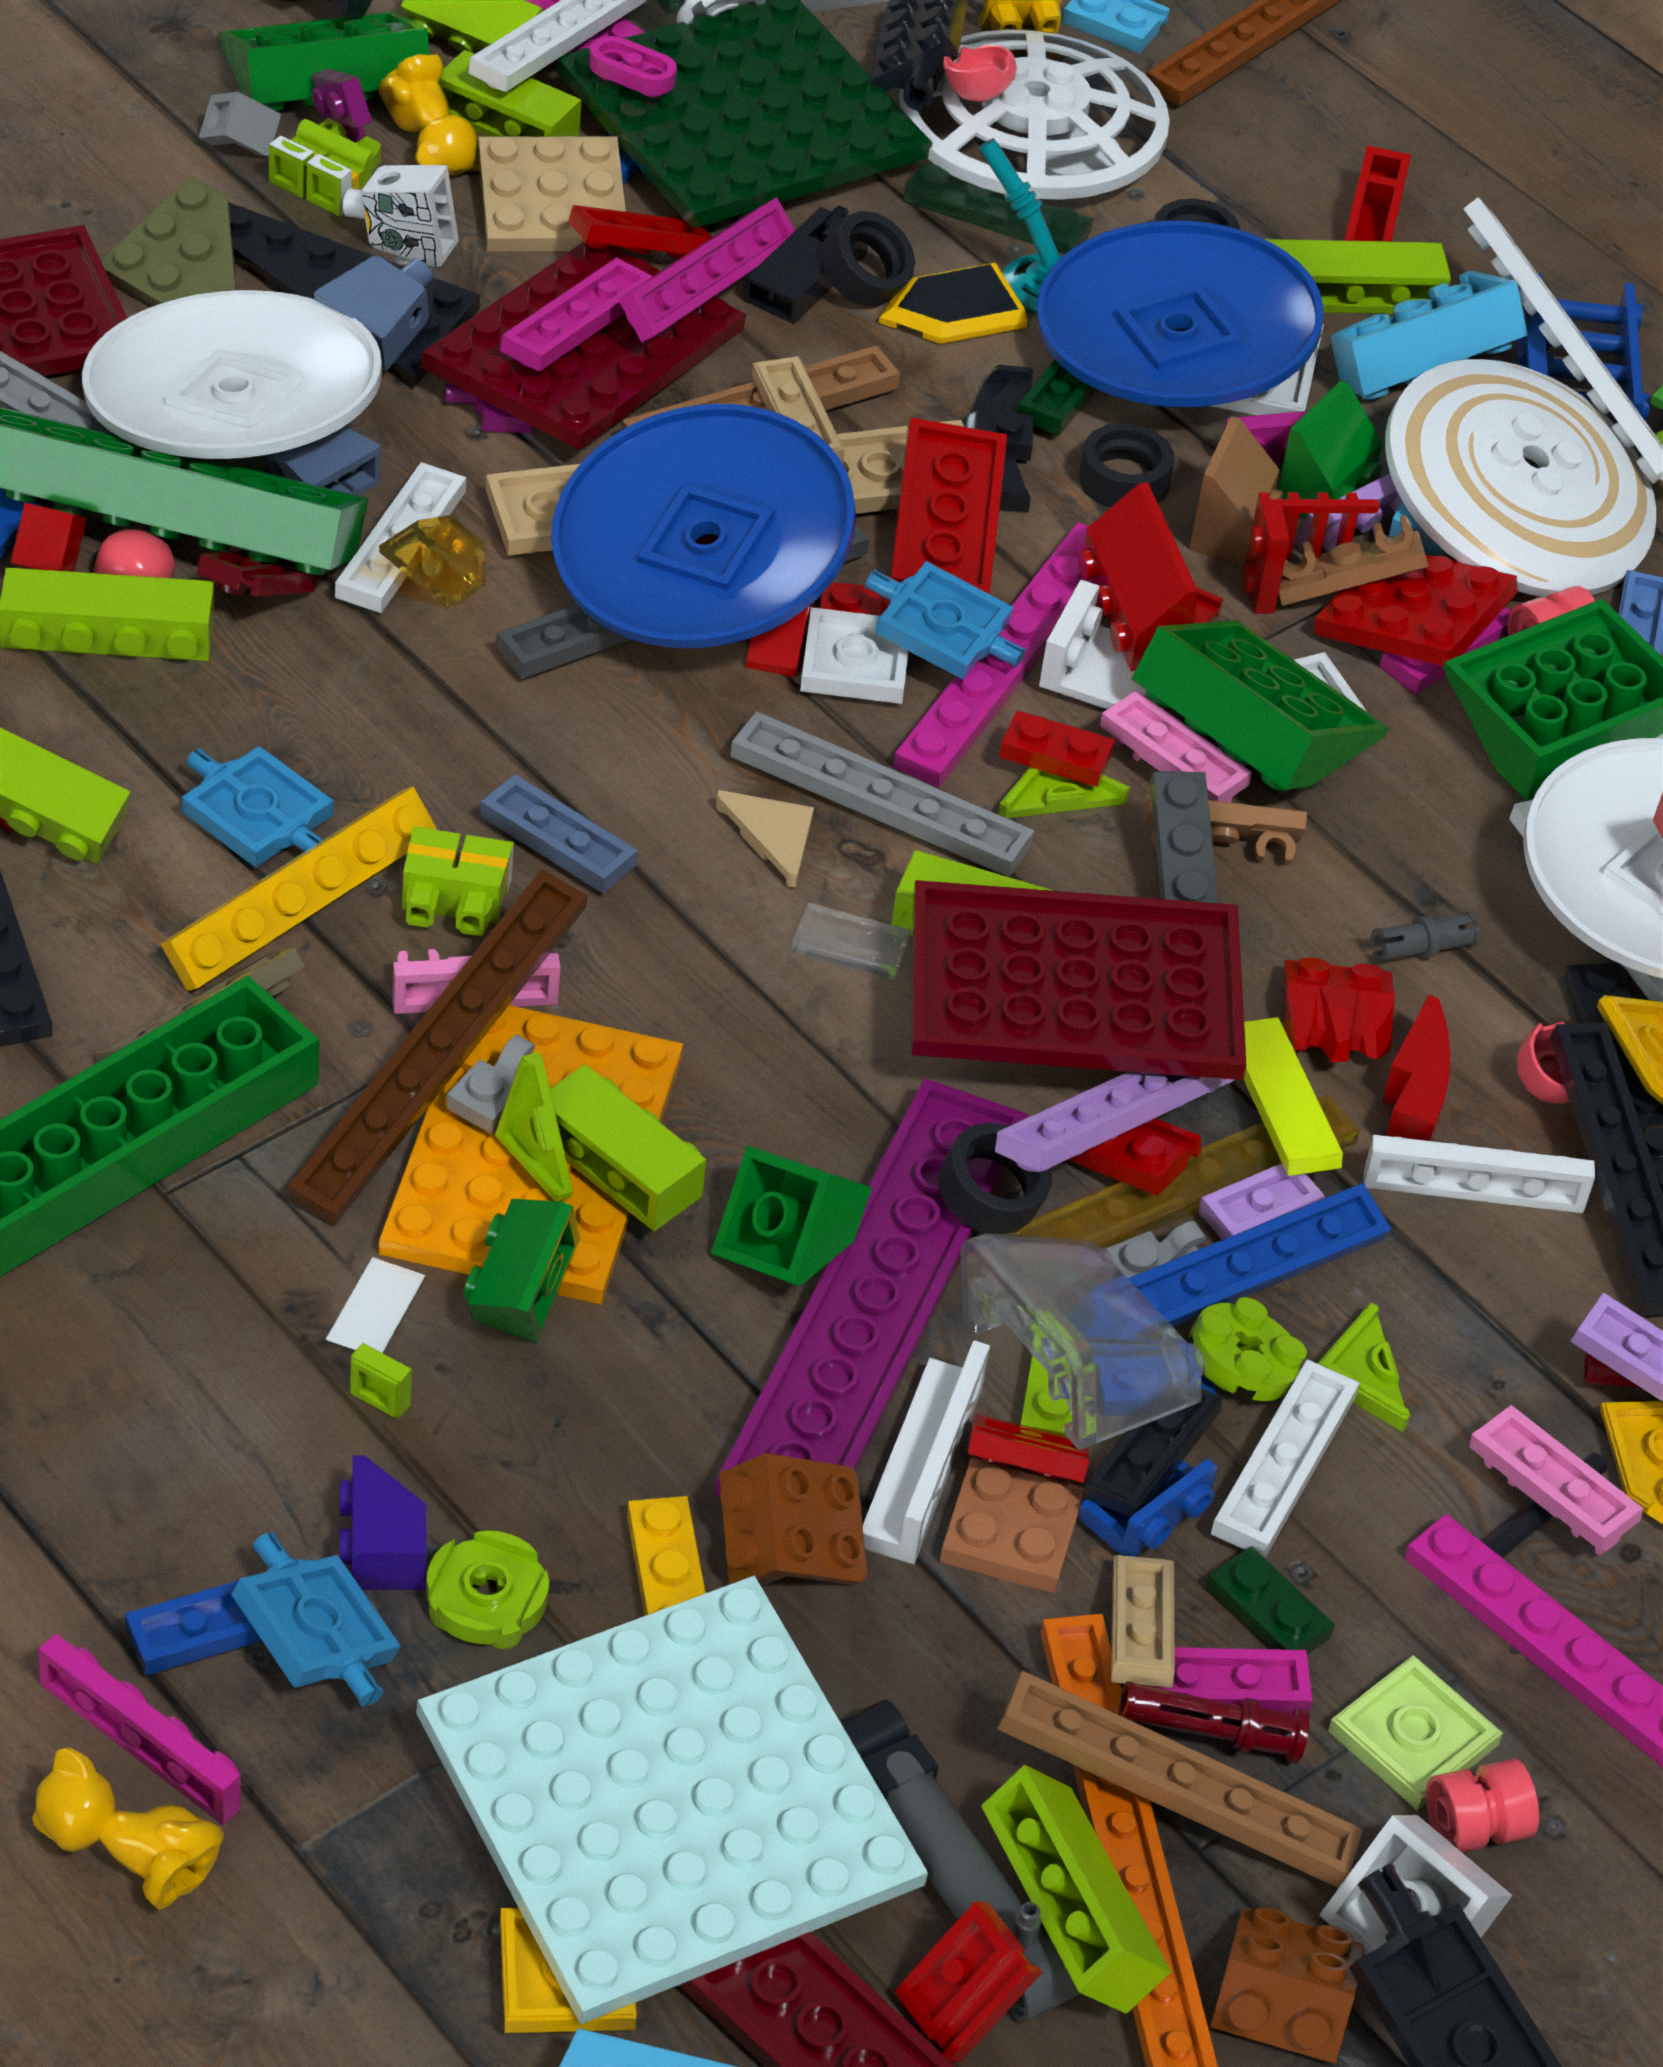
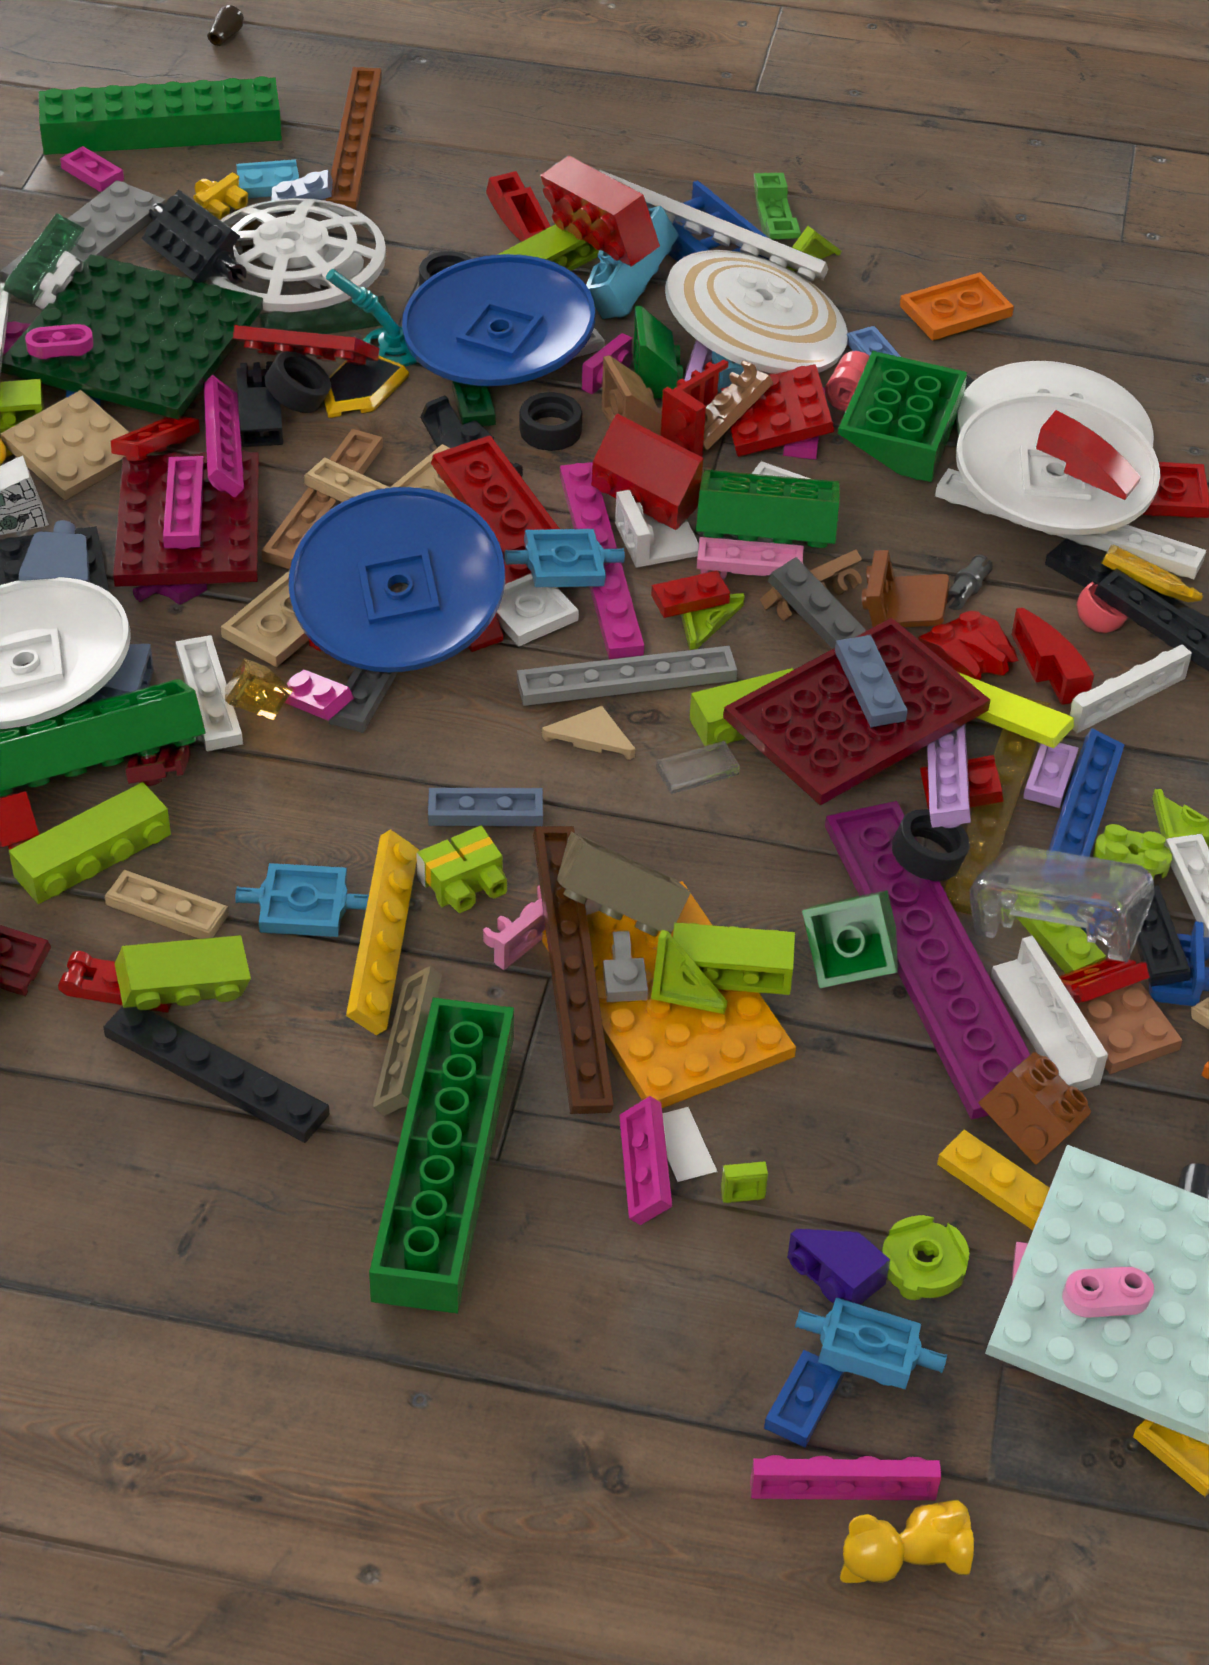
camera: 35 degrees left, 0 degrees up
(120, 727) = (166, 905): none -> tan tile
(135, 554) = (67, 799): coral hair -> none
(304, 1291) = (645, 1160): none -> dark pink plate
(506, 604) = (318, 694): none -> dark pink plate
(523, 1267) = (761, 1059): green slope -> none
(572, 986) = (621, 885): none -> dark tan slope
(597, 1740) = (1110, 1292): none -> bright pink plate
(918, 222) = (322, 346): none -> red plate
(981, 72) = (260, 241): coral hair -> none
(1118, 954) = (870, 681): none -> sand blue plate
(1142, 48) = (312, 186): none -> sand blue plate
(1145, 1251) = (1035, 834): light grey plate -> none
(1304, 901) = (907, 599): none -> dark orange bracket
(1413, 245) = (600, 210): none -> red brick

